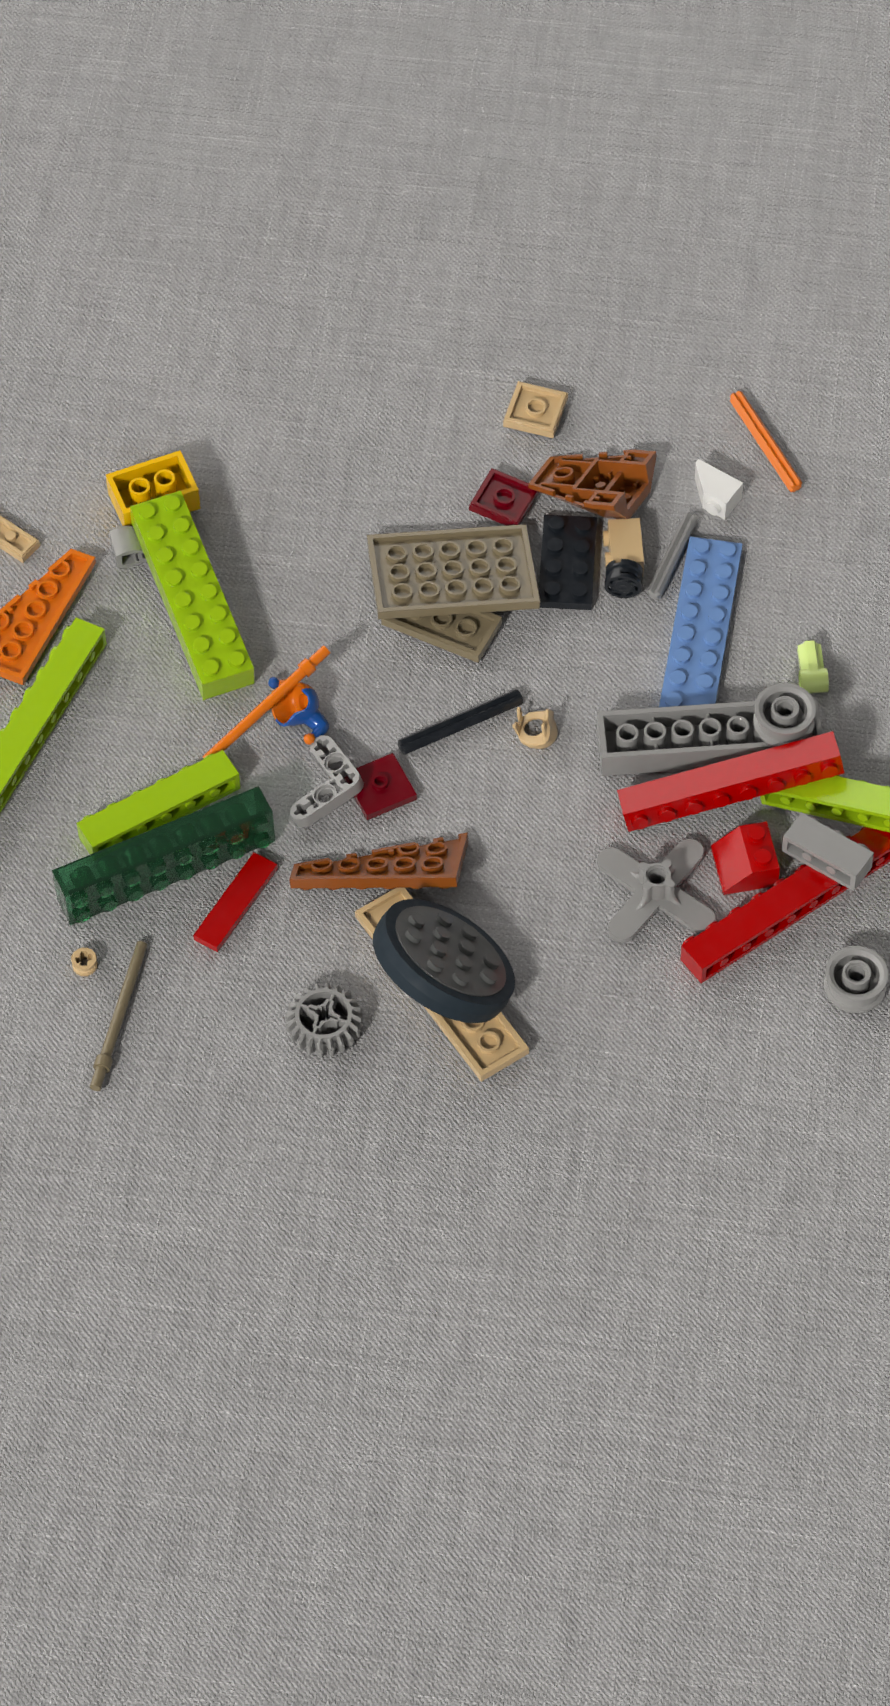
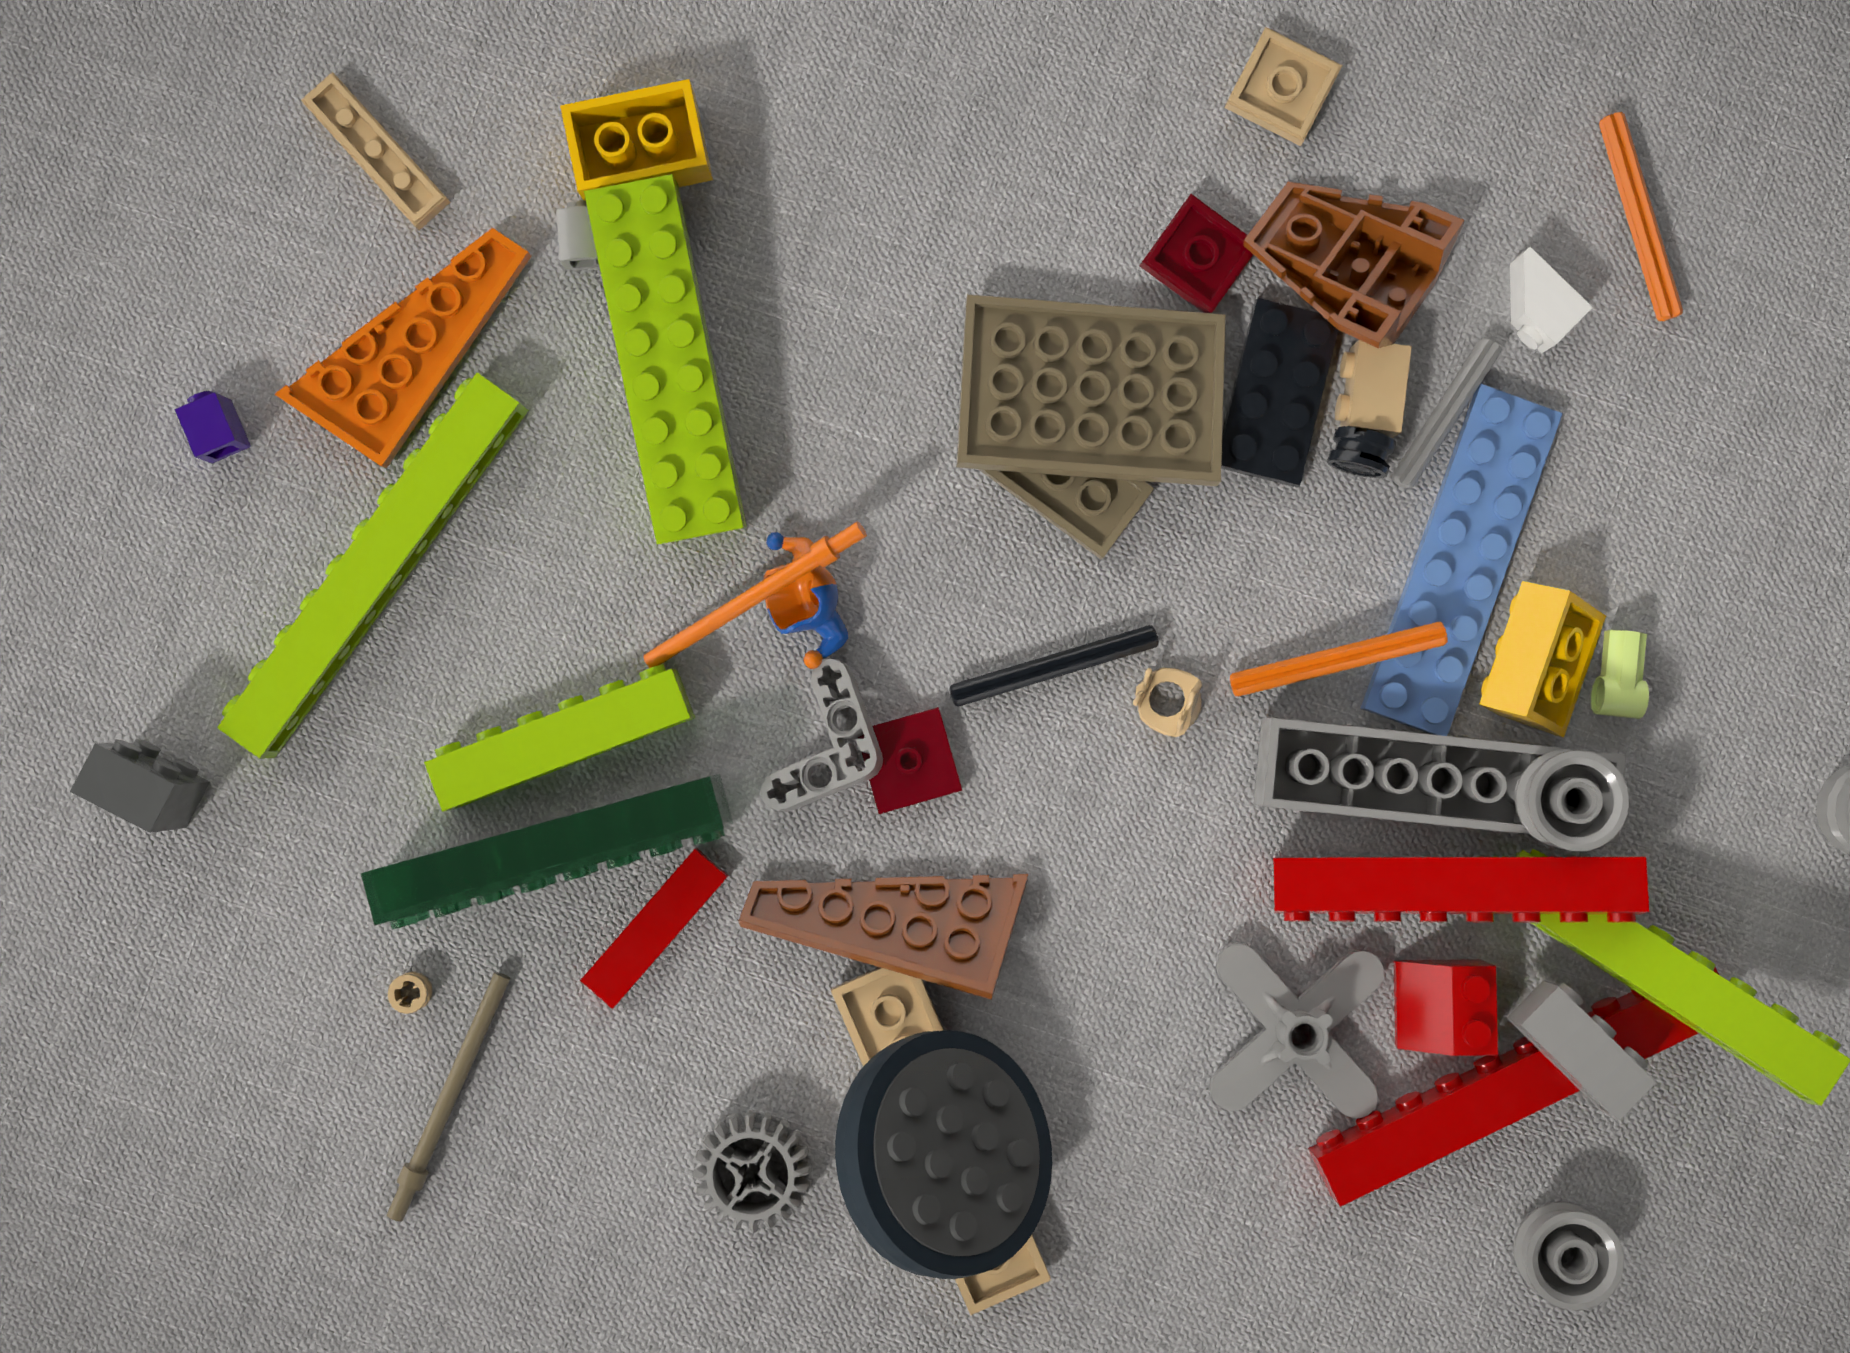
camera: 10 degrees right, 30 degrees up
(633, 686) = (1338, 659): none -> orange axle
(759, 660) = (1542, 658): none -> yellow slope

